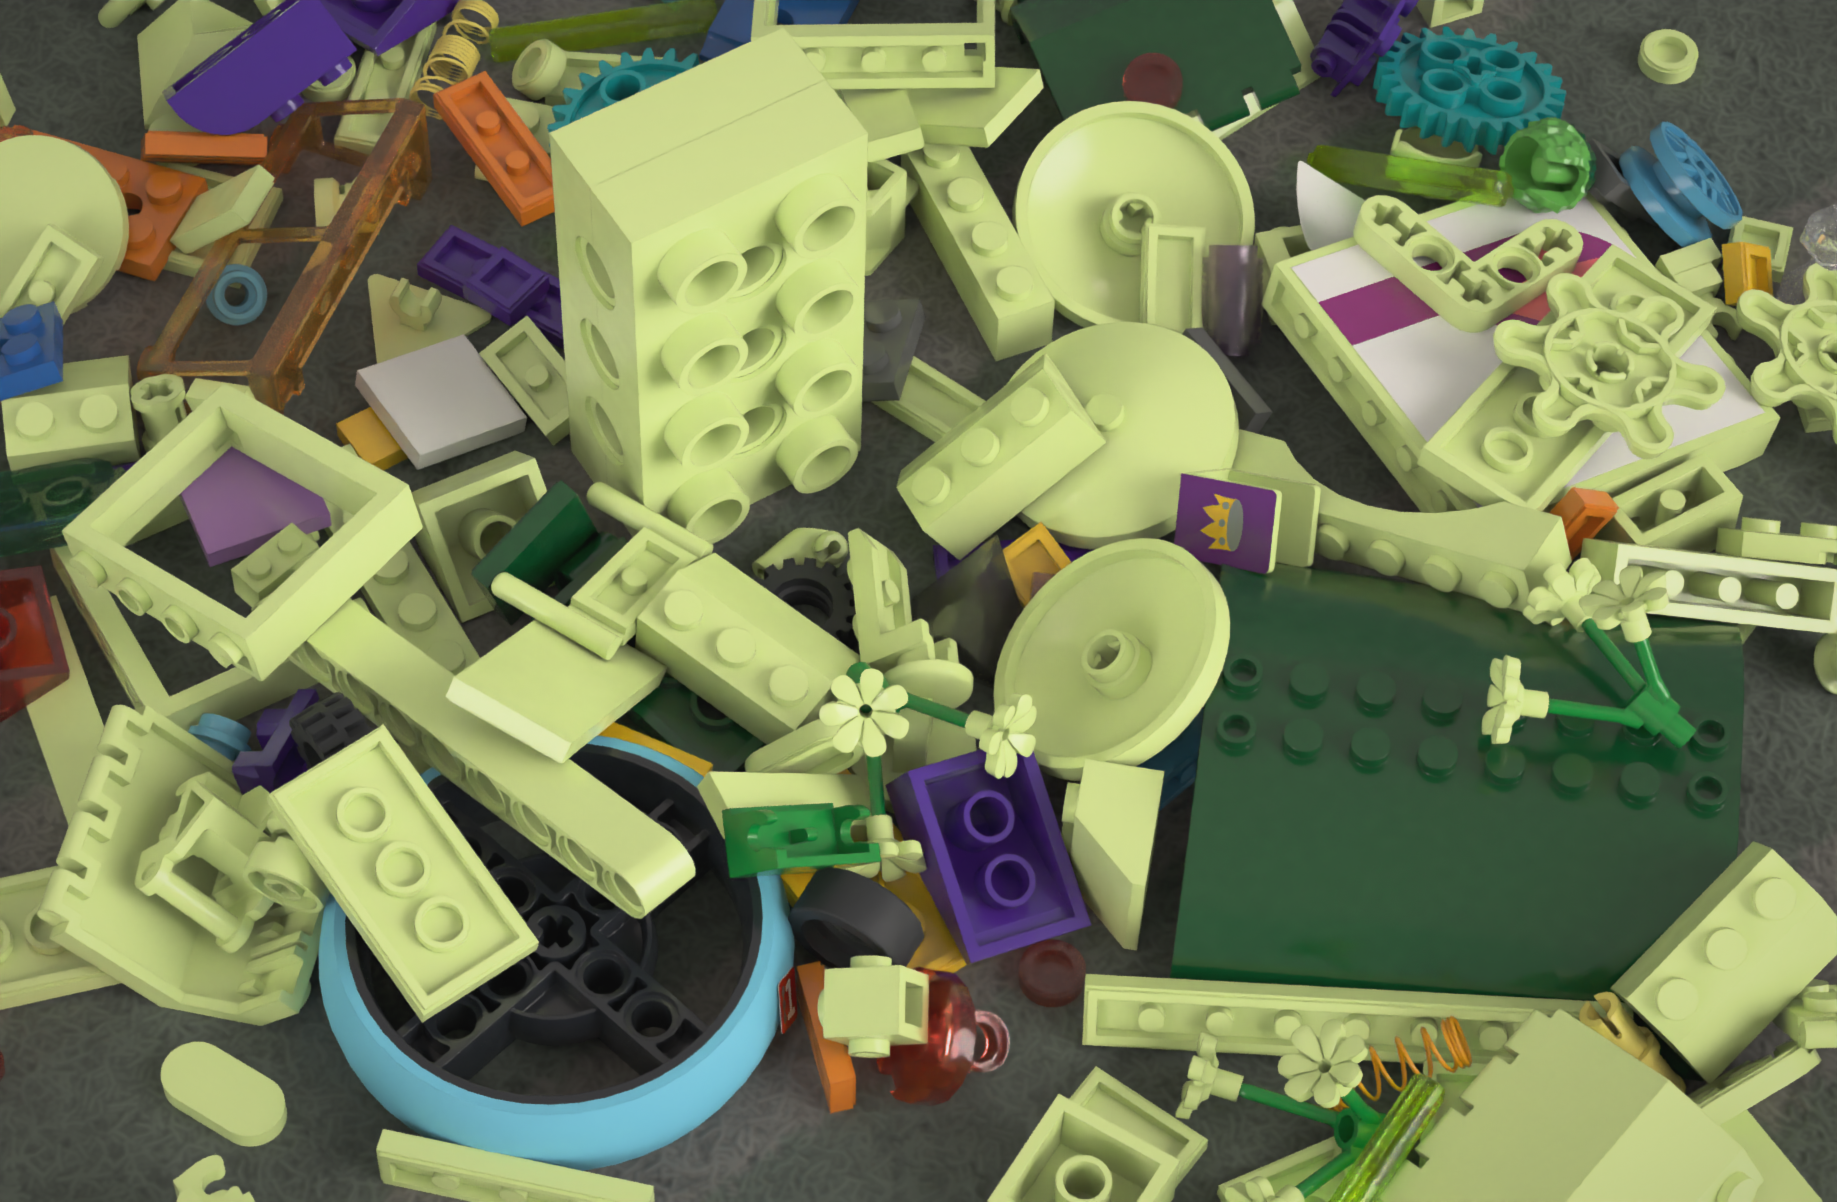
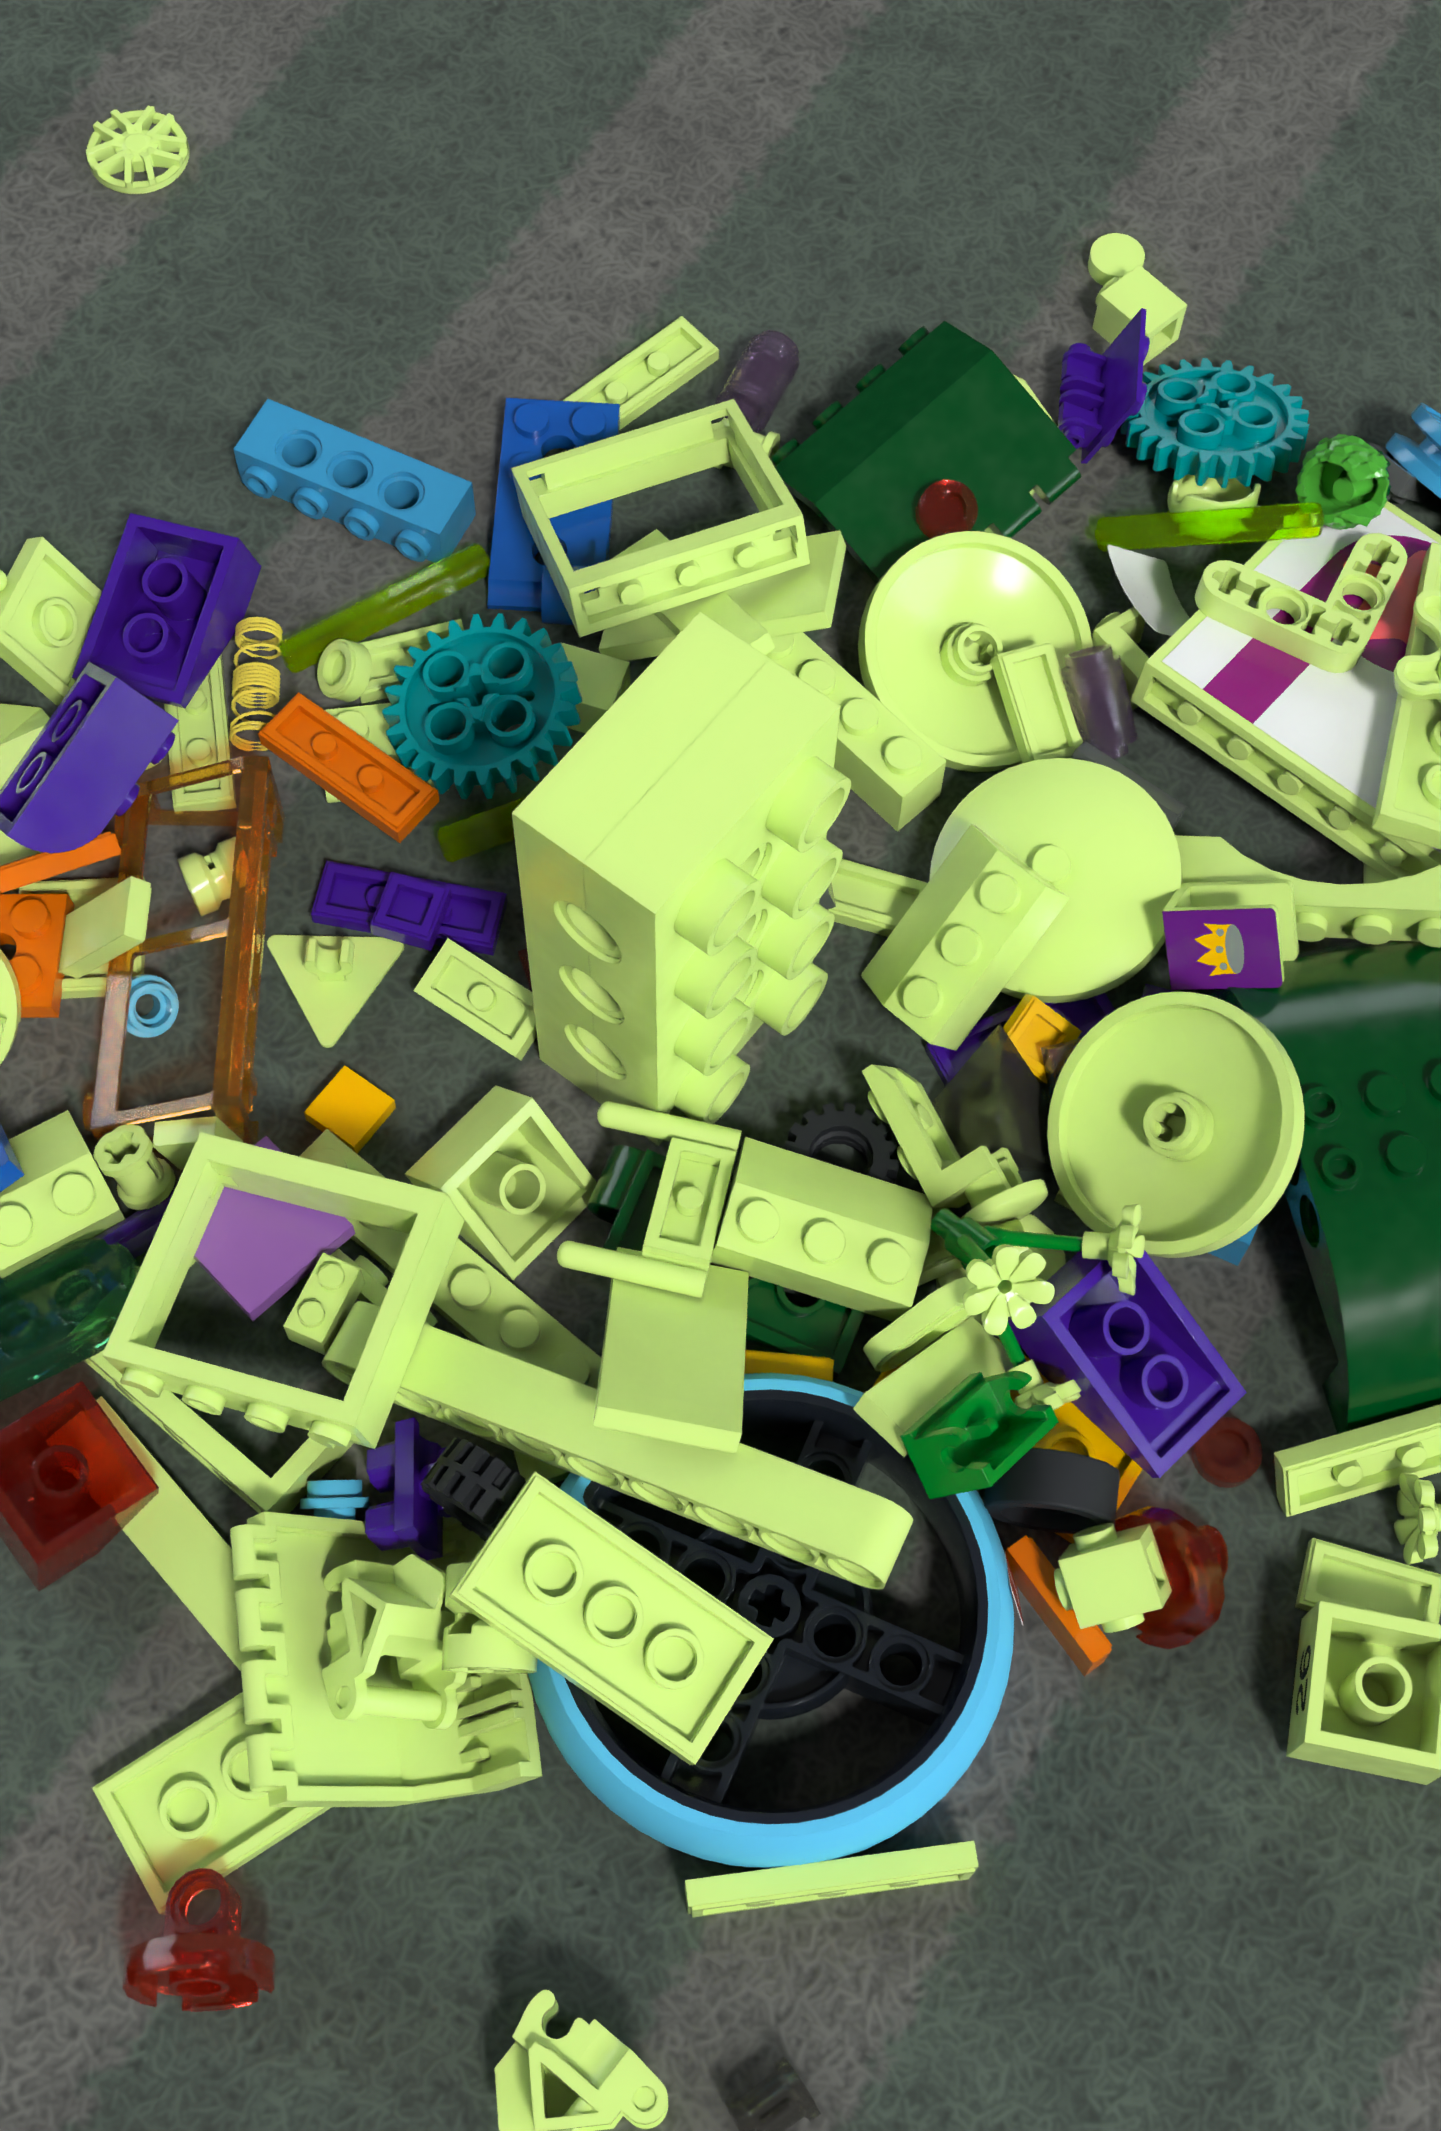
camera: 20 degrees left, 10 degrees up
(224, 1094) = (497, 1883): yellowish green tile -> none
(440, 401) = (396, 1054): white tile -> none
(537, 546) = (572, 1194): dark green tile -> none
(802, 543) = (808, 1091): yellowish green arm -> none
(1112, 840) = (1252, 1310): yellowish green slope -> none
(1668, 56) = (1361, 332): yellowish green tile -> none

